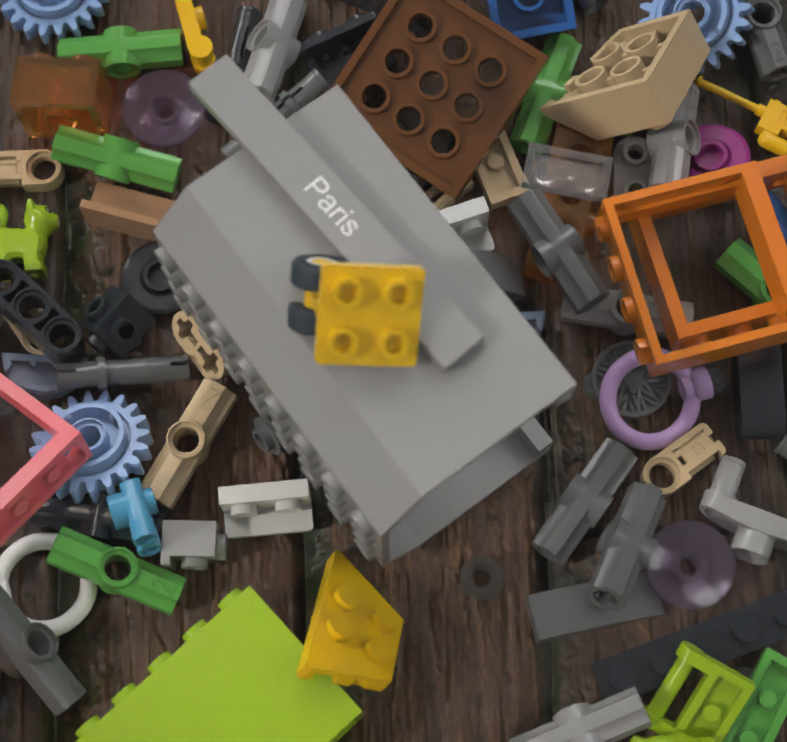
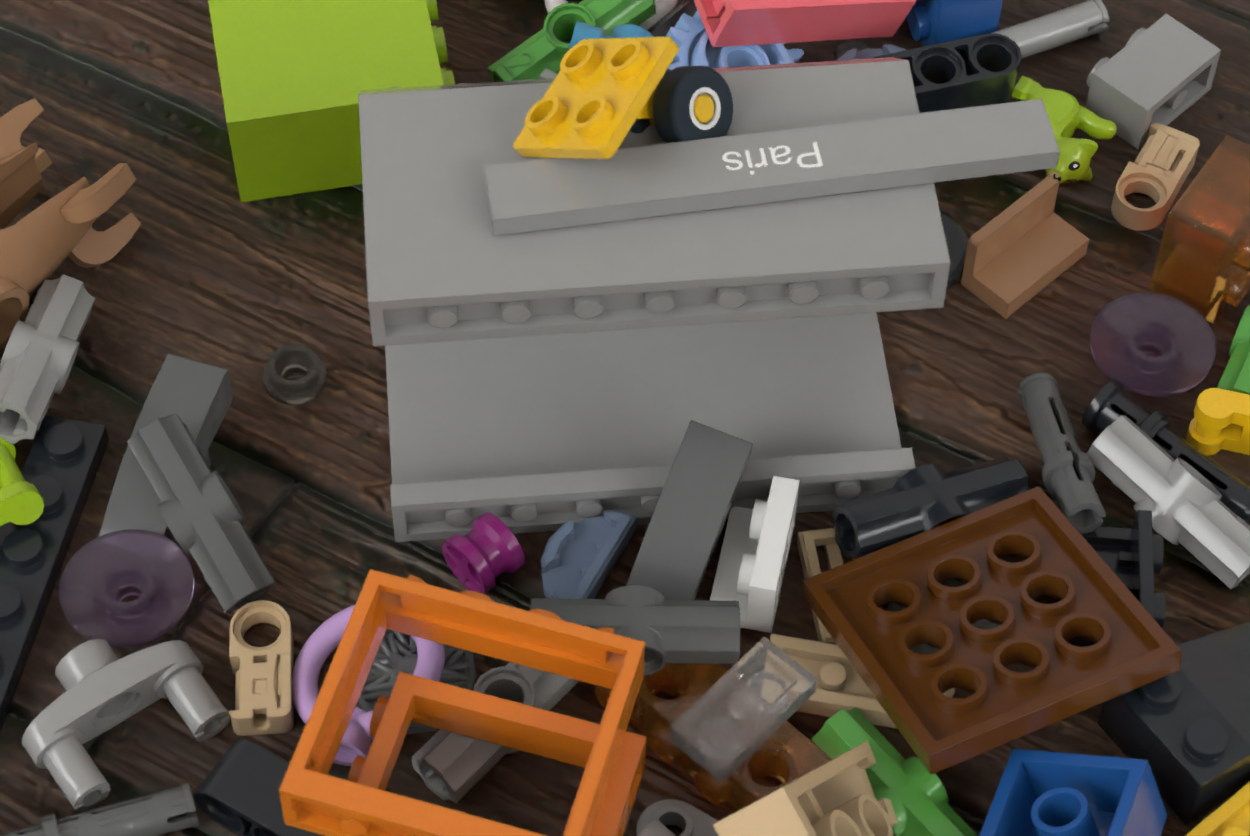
camera: 120 degrees right, 20 degrees down
(116, 158) = (1100, 262): bright green piece -> none
(351, 630) = (311, 179): yellow wing -> none
(584, 501) = (297, 525): dark grey piece -> none

